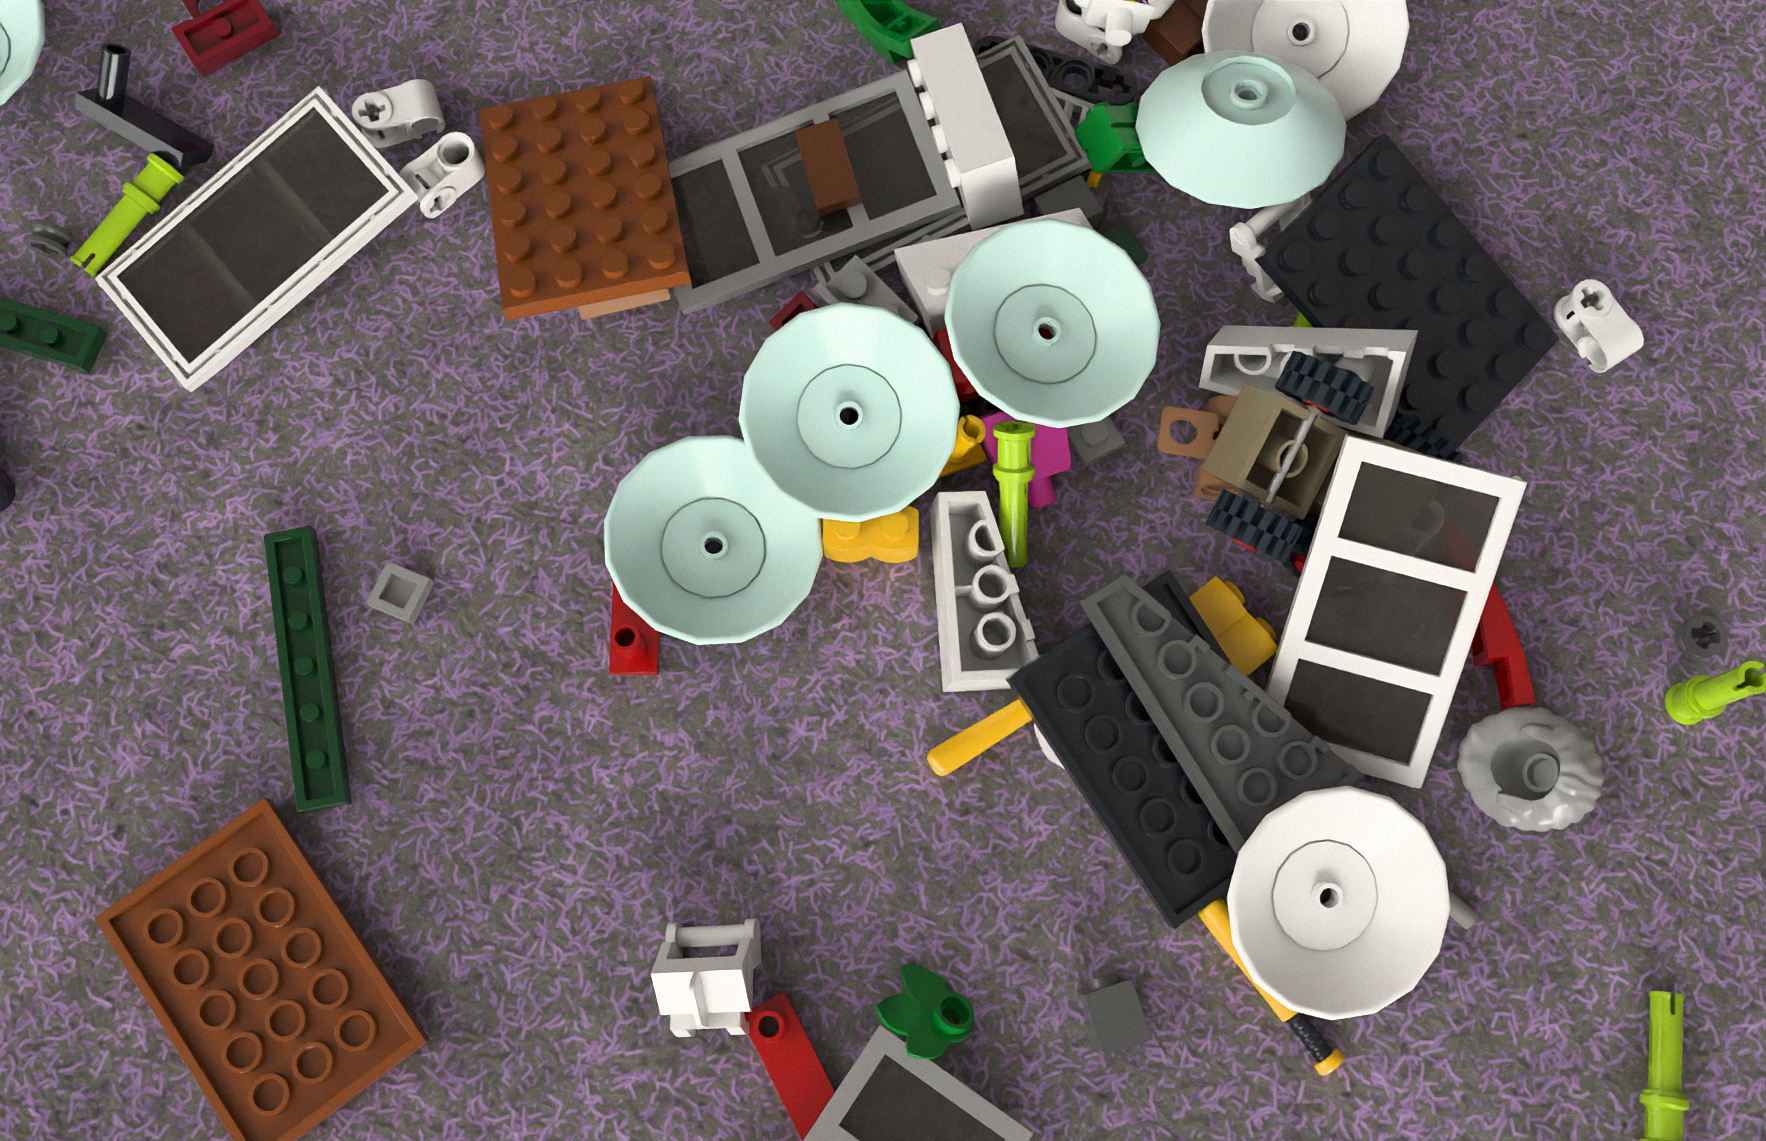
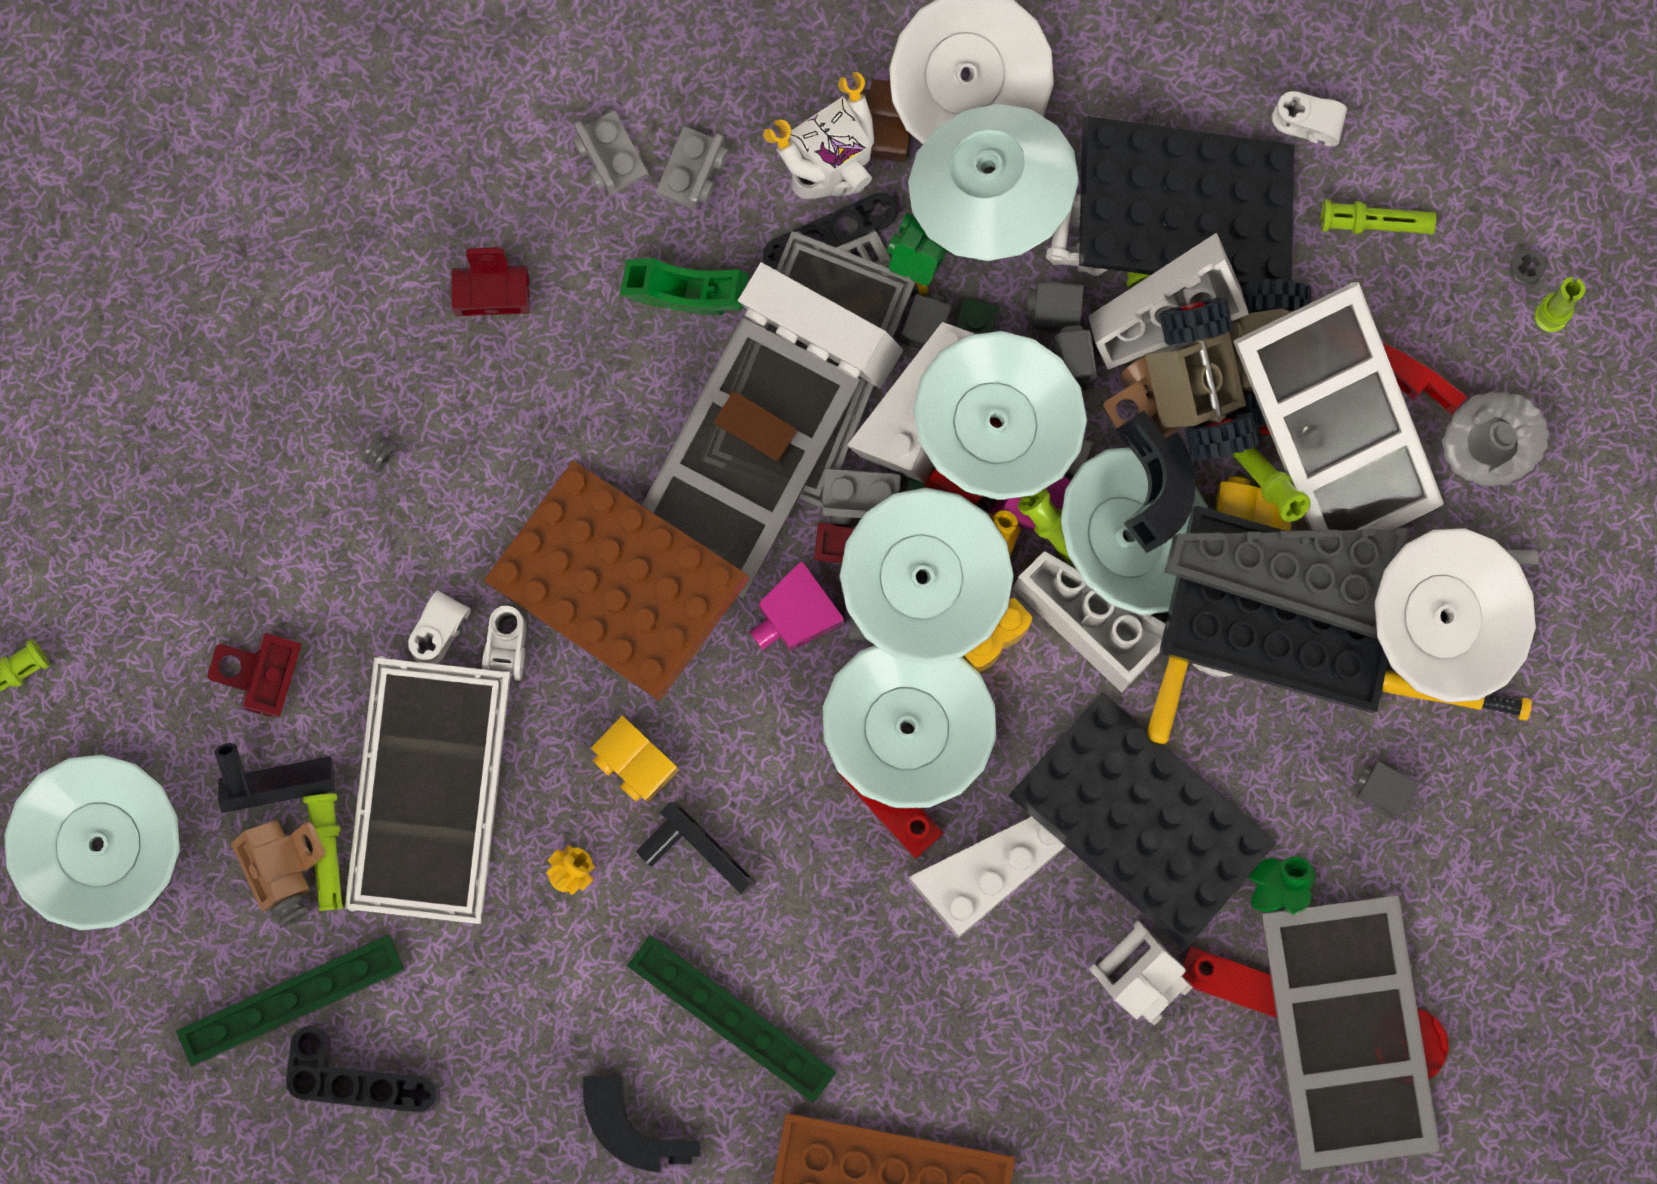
camera: 40 degrees left, 5 degrees up
(75, 185) = (277, 861): none -> medium nougat piece
(106, 678) = (608, 1120): none -> black arch
(301, 408) = (570, 869): none -> yellow gear
(400, 592) = (743, 925): light grey plate -> none
(436, 462) = (680, 824): none -> black piece
(450, 364) = (634, 760): none -> yellow brick
(653, 743) = (982, 876): none -> white wedge
(711, 357) = (796, 611): none -> dark pink torso
(845, 829) = (1143, 820): none -> black plate
(1091, 496) = (1092, 520): none -> light aqua dish
(1166, 525) = (1169, 482): none -> black arch
(1178, 348) = (1076, 351): none -> dark grey brick
(1200, 288) = (1054, 305): none -> dark grey brick
(1265, 620) = (1275, 485): none -> lime pin
(1569, 454) = (1358, 212): none -> lime pin

